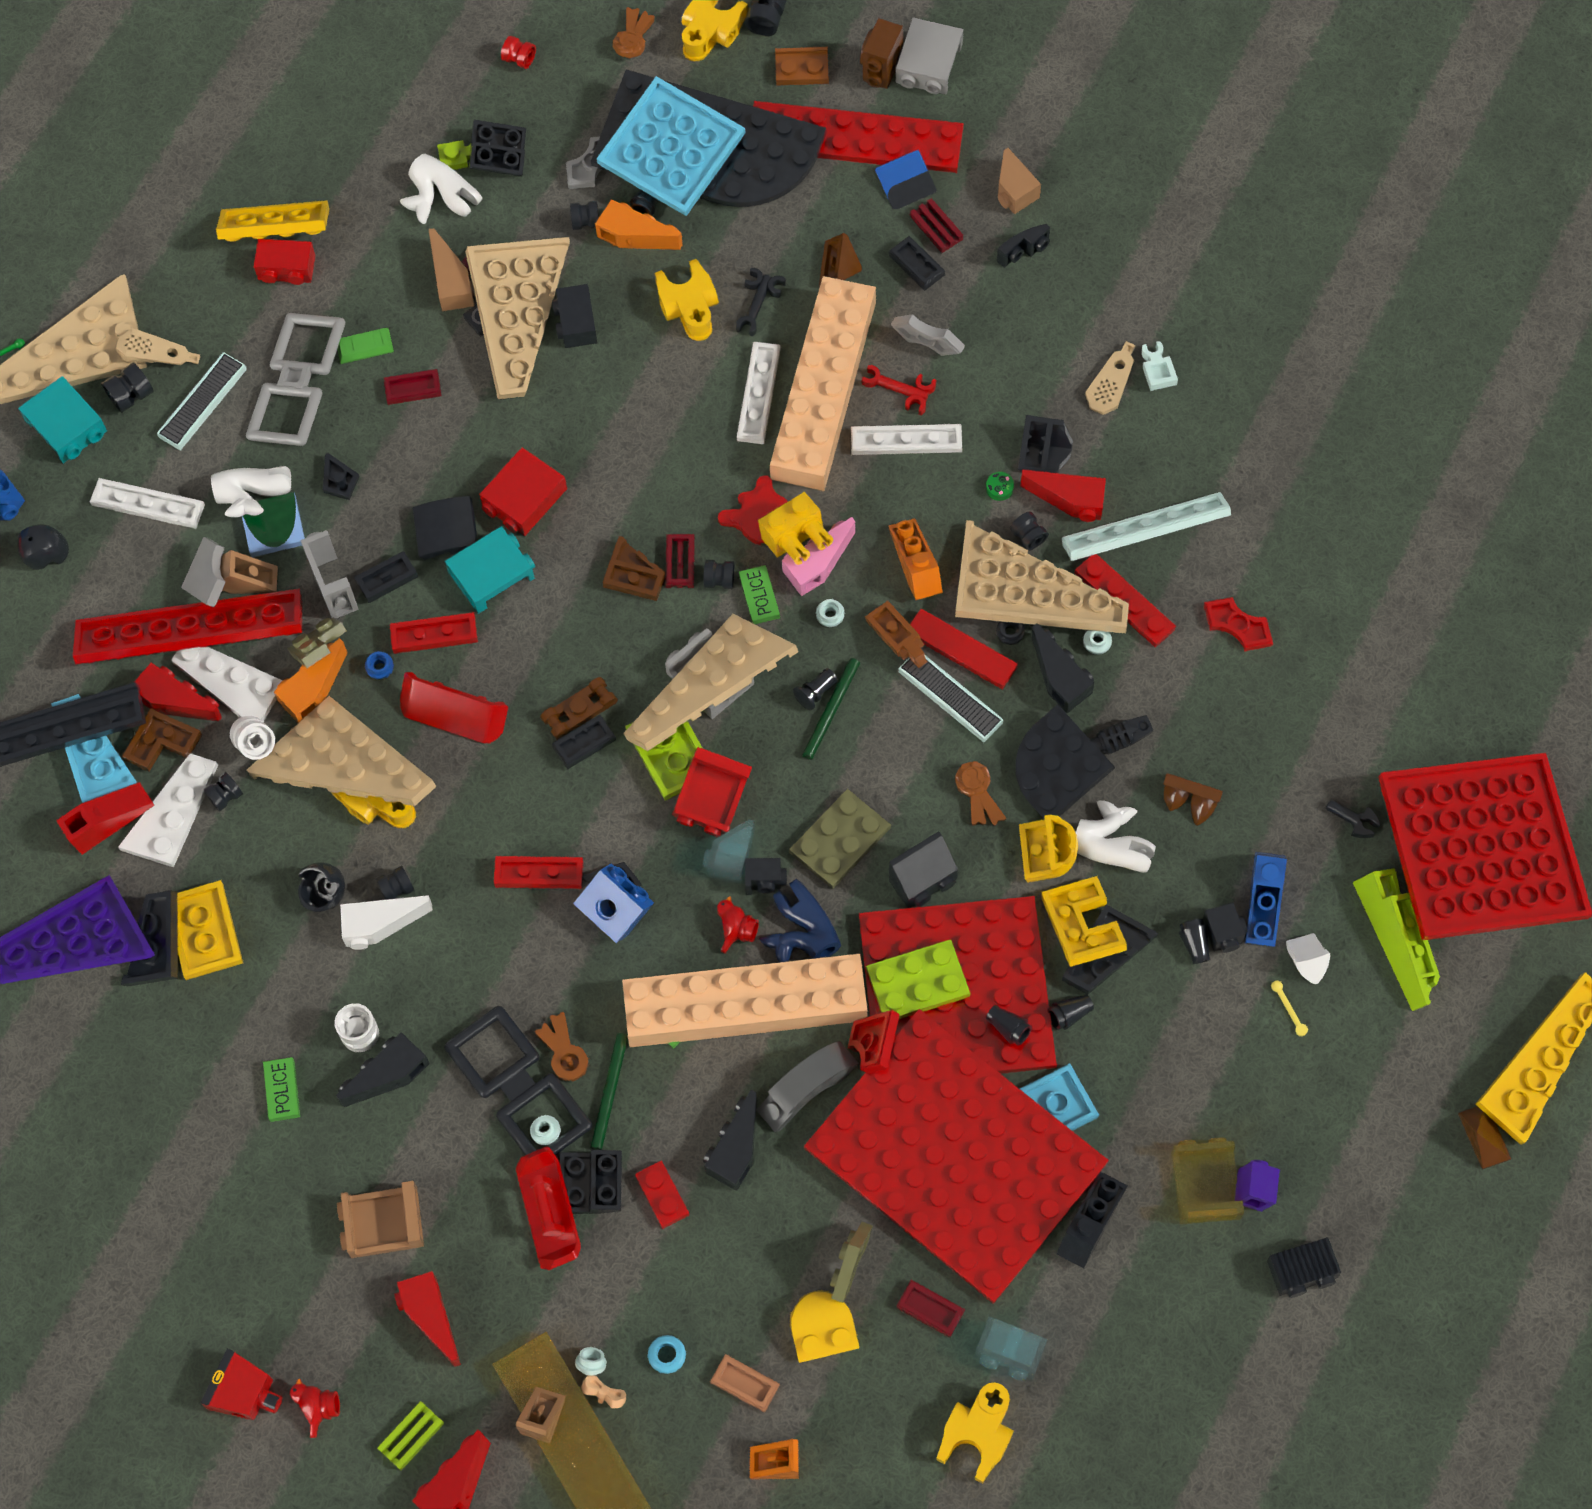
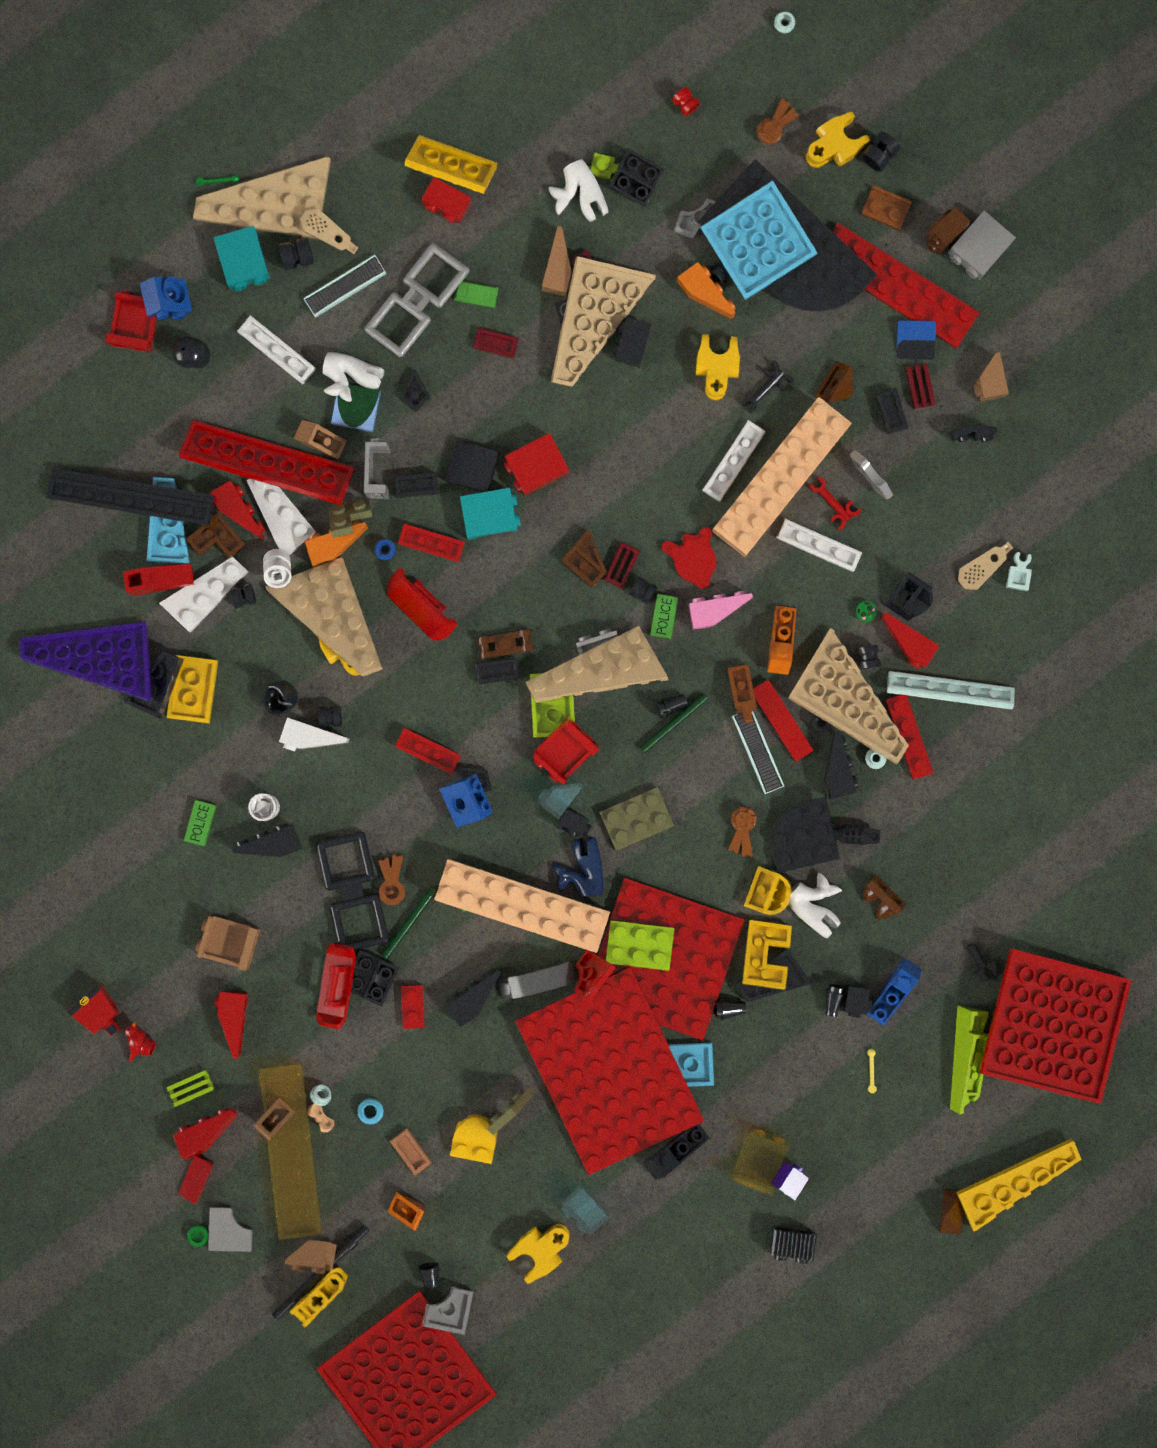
camera: 20 degrees right, 20 degrees up
(204, 575) = (292, 429): light grey tile -> none
(547, 1137) = (363, 930): light aqua plate -> none
(584, 215) = (674, 262): black wheel -> none
(736, 924) = (540, 848): red animal -> none
(791, 525) = (708, 580): yellow brick -> none
(830, 605) = (705, 660): light aqua plate -> none
(923, 871) = (679, 872): slope -> none
(930, 1308) = (547, 1158): dark red tile -> none
(1011, 1026) = (684, 1004): black cone -> none
(1227, 617) = (981, 798): red tile -> none
(1309, 957) = (901, 1044): white tile -> none

